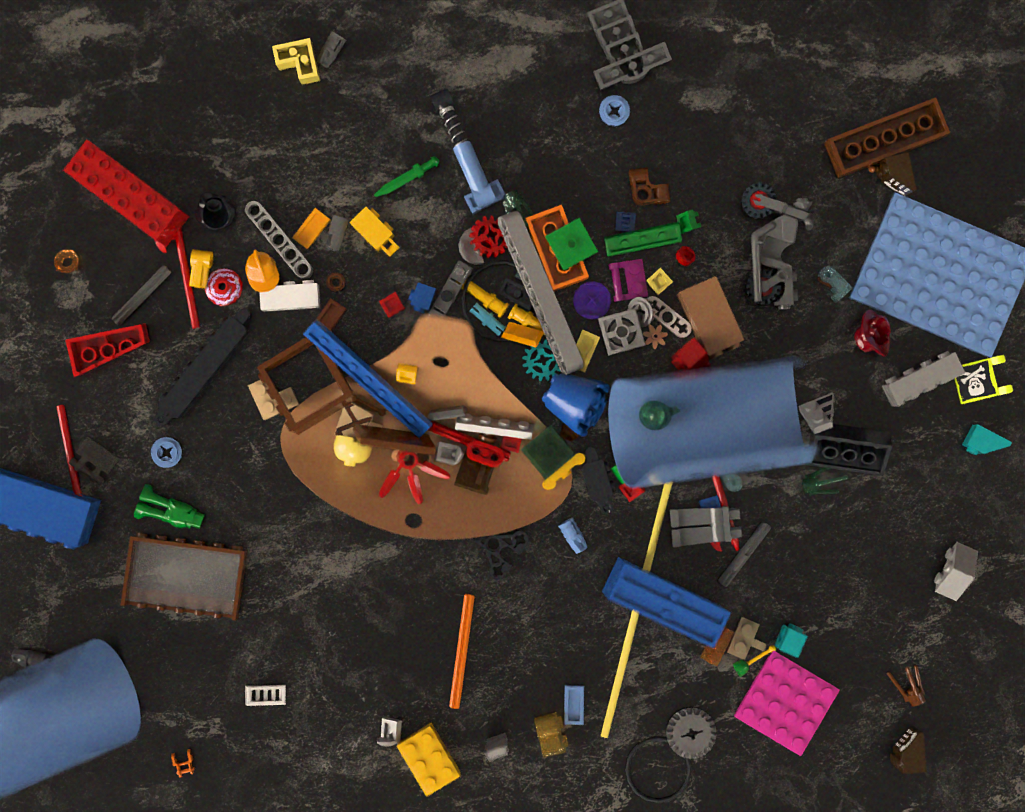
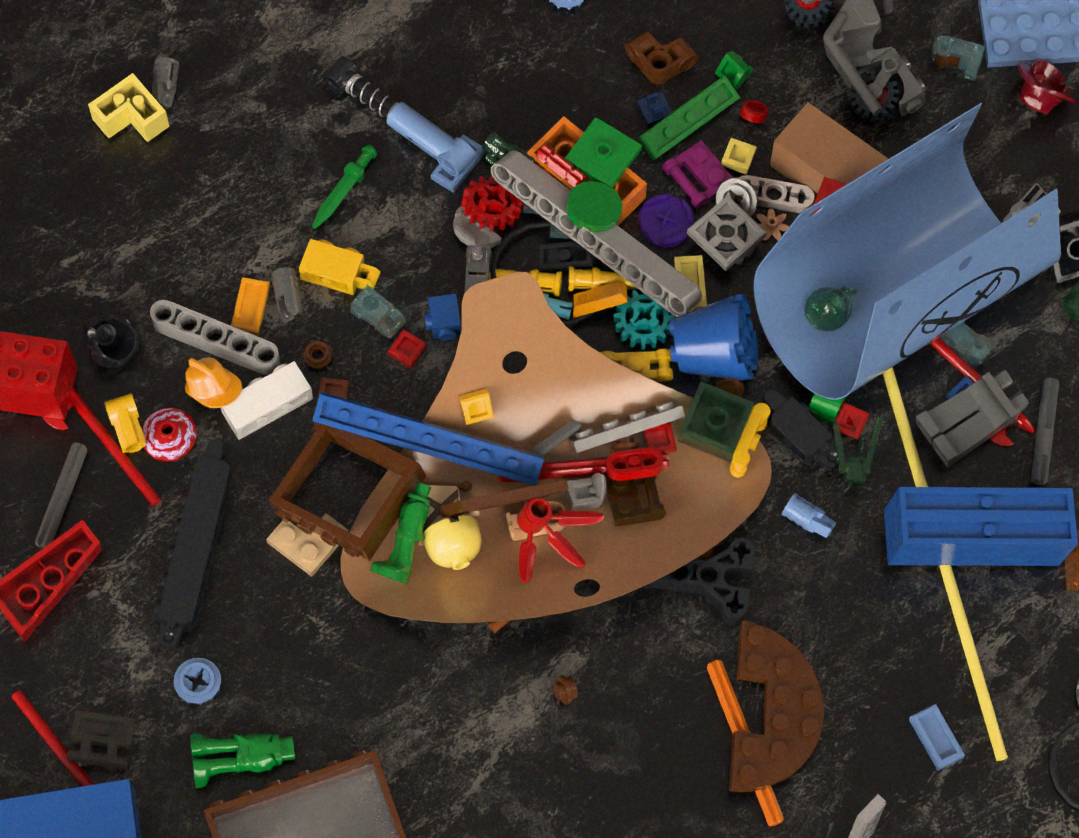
camera: 30 degrees left, 20 degrees down
(310, 447) = (409, 531): none -> green piece
(374, 567) = (565, 689): none -> reddish brown plate
(385, 274) = (377, 312): none -> clear light blue leg
(497, 648) = (790, 711): none -> reddish brown plate
(522, 387) = (641, 361): none -> yellow plate
(540, 239) = (560, 165): none -> axle
(546, 278) = (594, 206): none -> green tile
(550, 734) = (928, 790): clear yellow brick -> none
(617, 522) = (857, 467): none -> clear green plant

